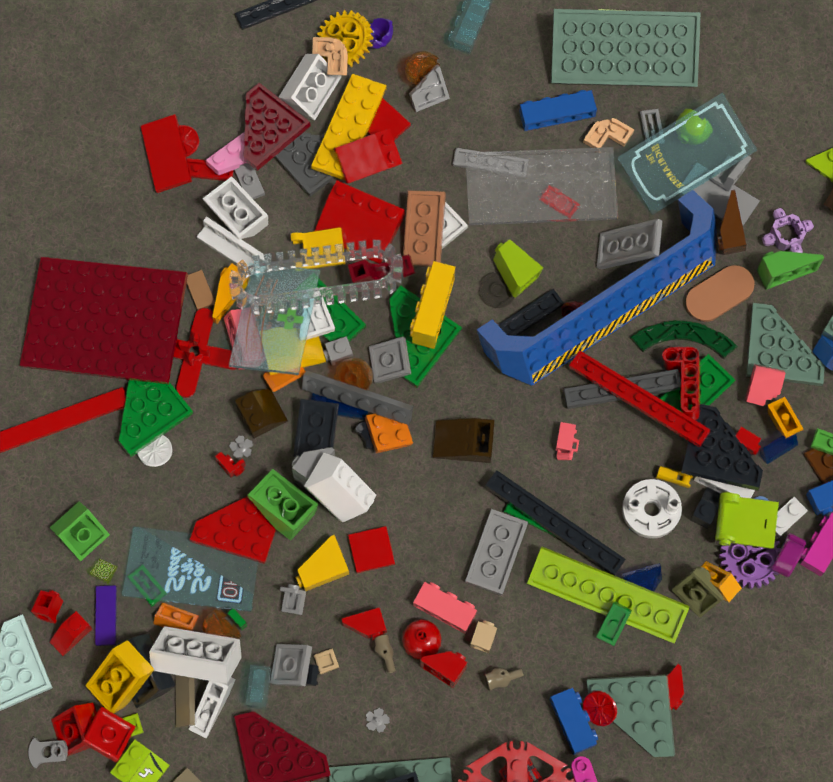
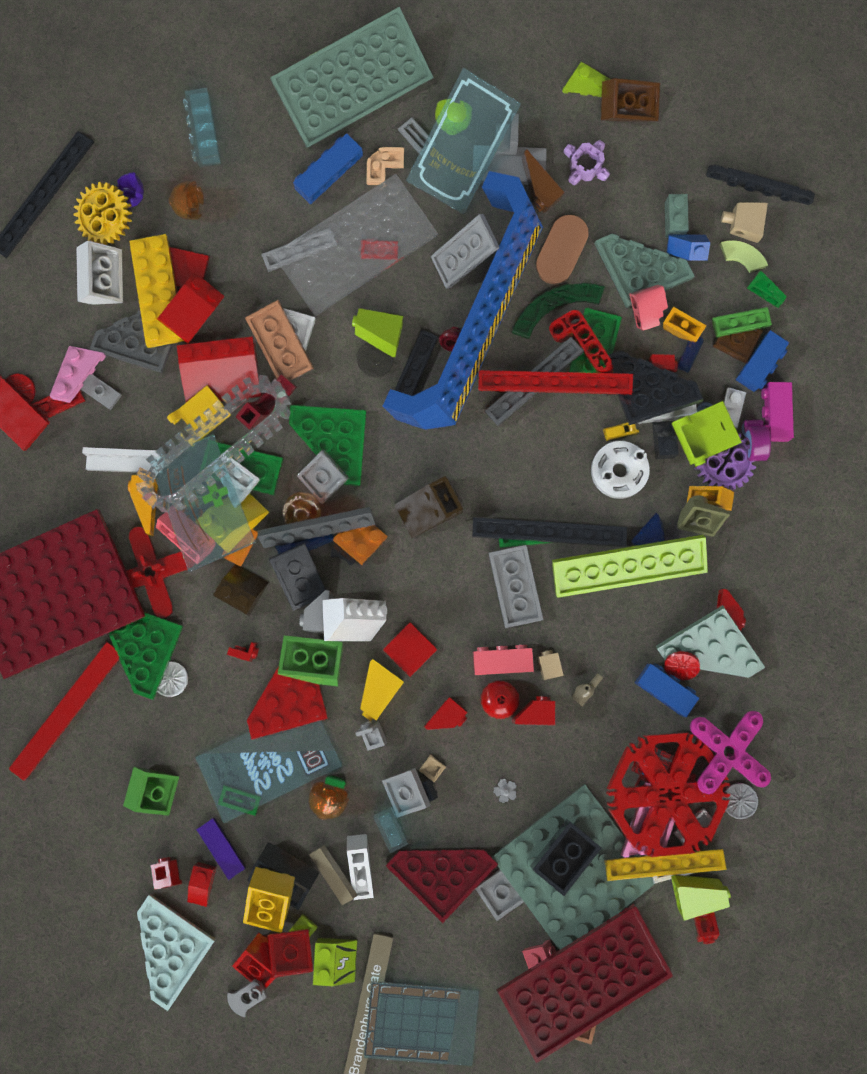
camera: 35 degrees left, 10 degrees up
(103, 571) = (194, 812): clear neon green slope -> none
(175, 618) = (282, 813): orange slope -> none
(195, 654) = (321, 840): white brick -> none
(200, 290) = (119, 514): medium nougat tile -> none
(237, 209) = (105, 424): white slope -> none
(241, 447) = (243, 630): light grey plant -> none
(269, 126) = (86, 332): dark red plate -> none
(336, 54) = (103, 230): light nougat plate -> none
(337, 350) = (273, 495): light grey bracket -> none
(384, 650) = (473, 727): dark tan piece -> none
(430, 90) = (206, 216): light grey wing -> none
(433, 304) = (329, 401): yellow brick -> none
(565, 441) = (514, 456): coral piece -> none
(614, 623) = (650, 587): green plate -> none
(786, 266) = (604, 192): bright green slope -> none

